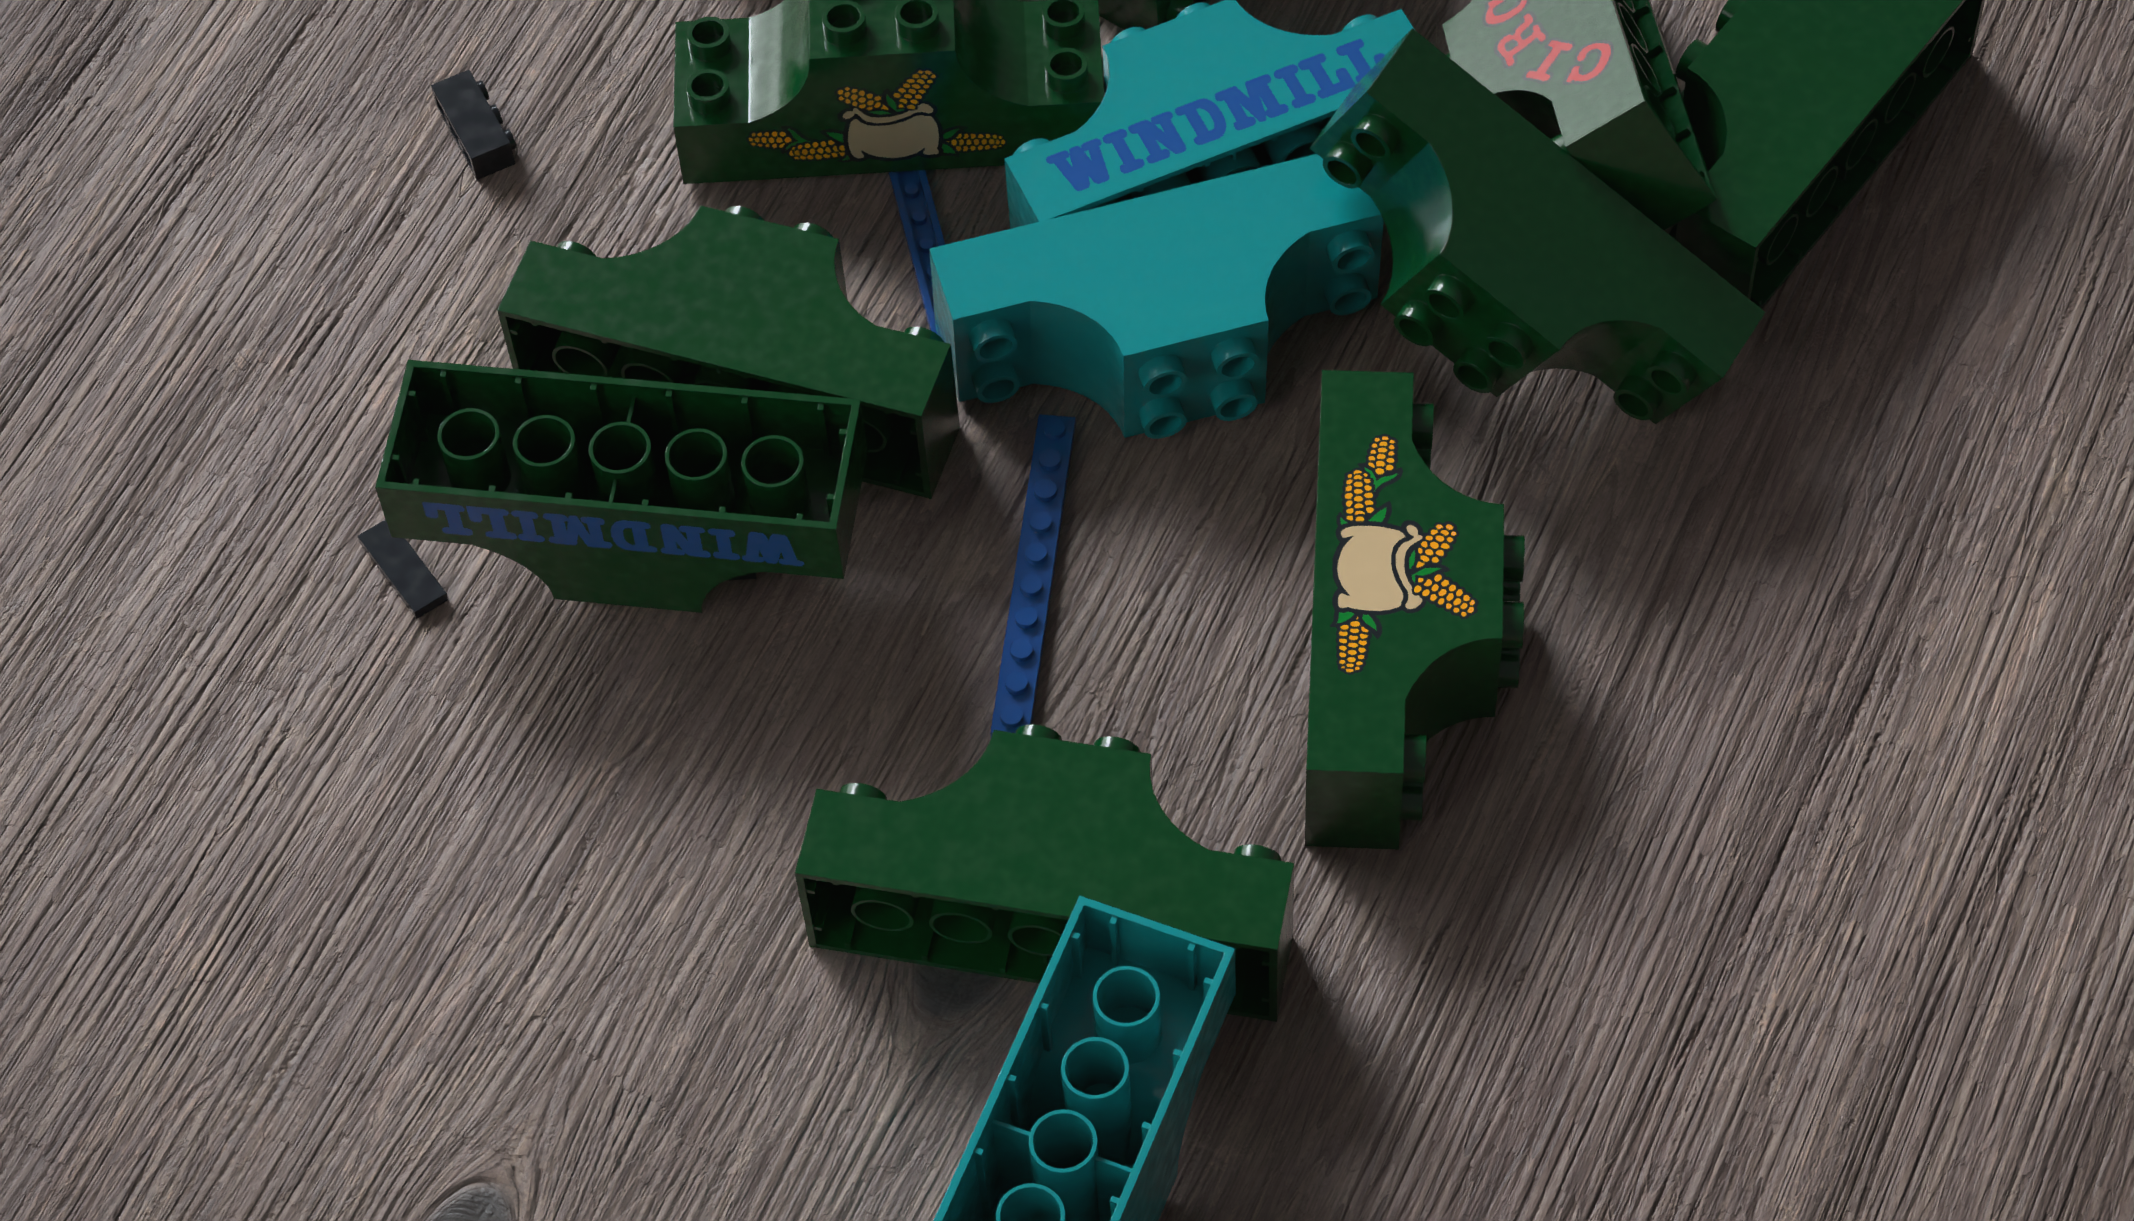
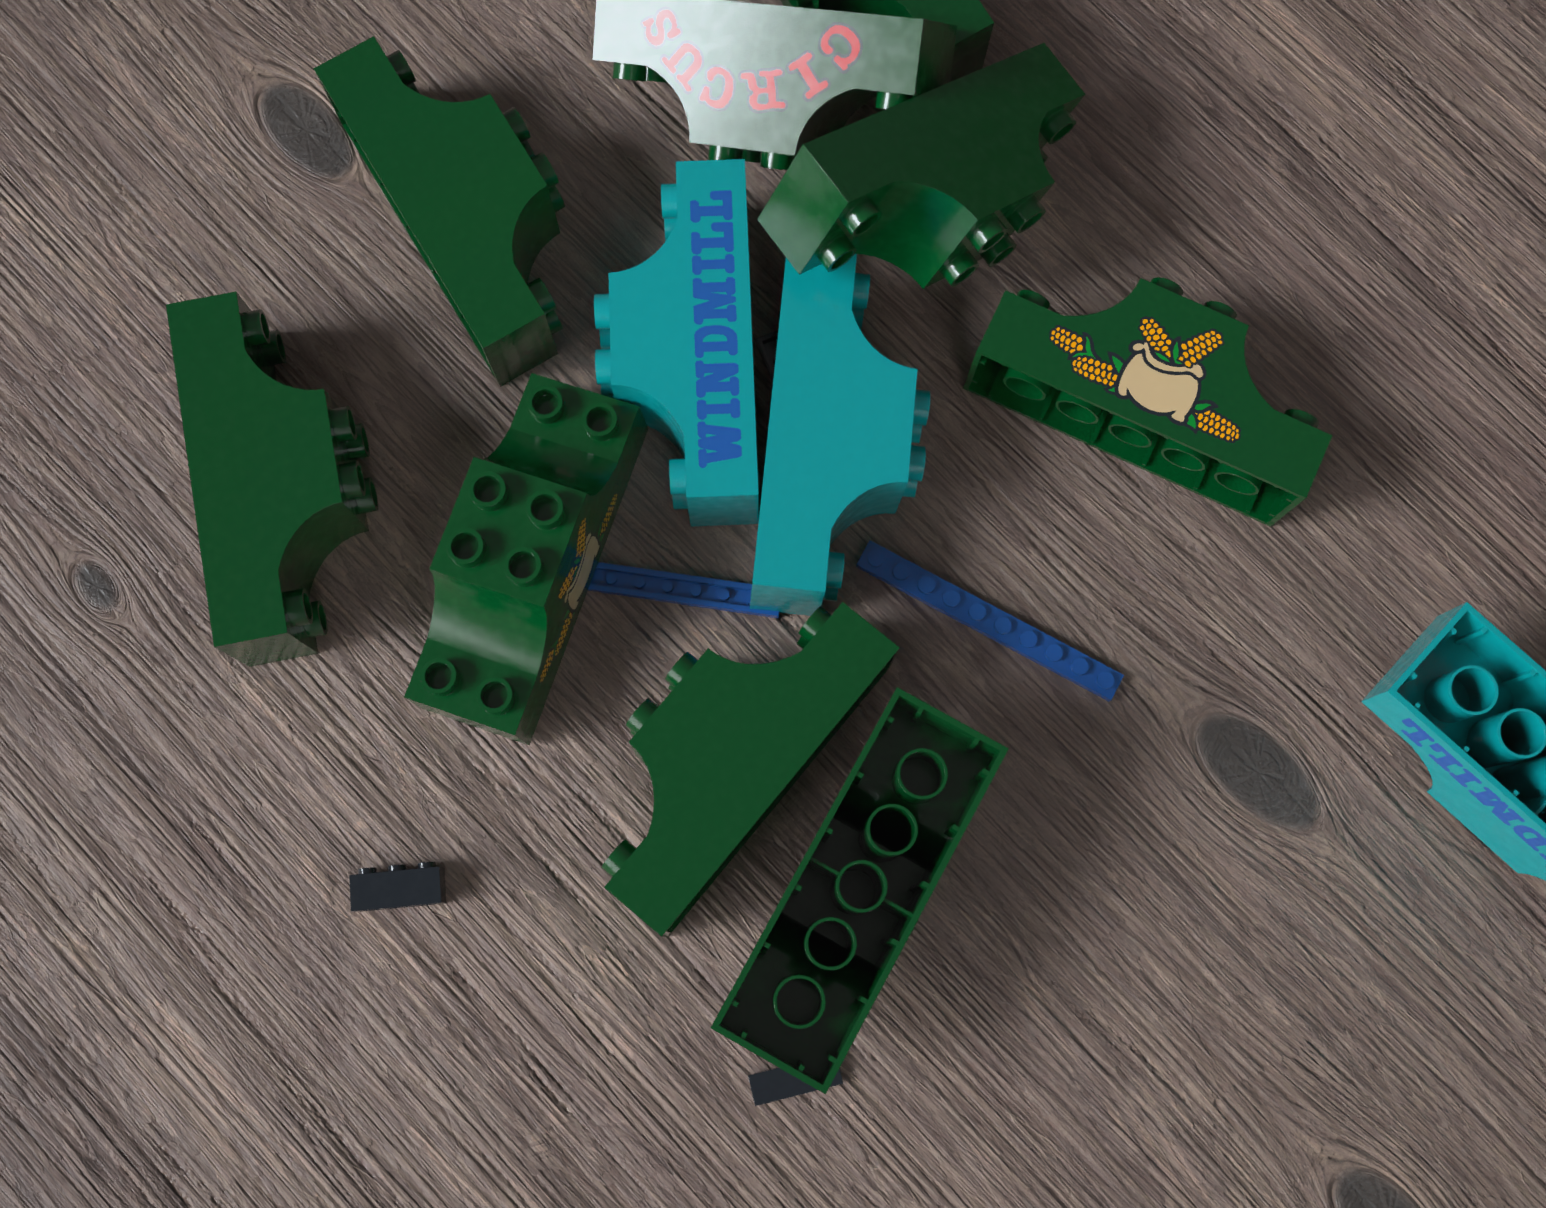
camera: 75 degrees left, 20 degrees up
(1001, 855) = (1279, 701): dark green brick -> none

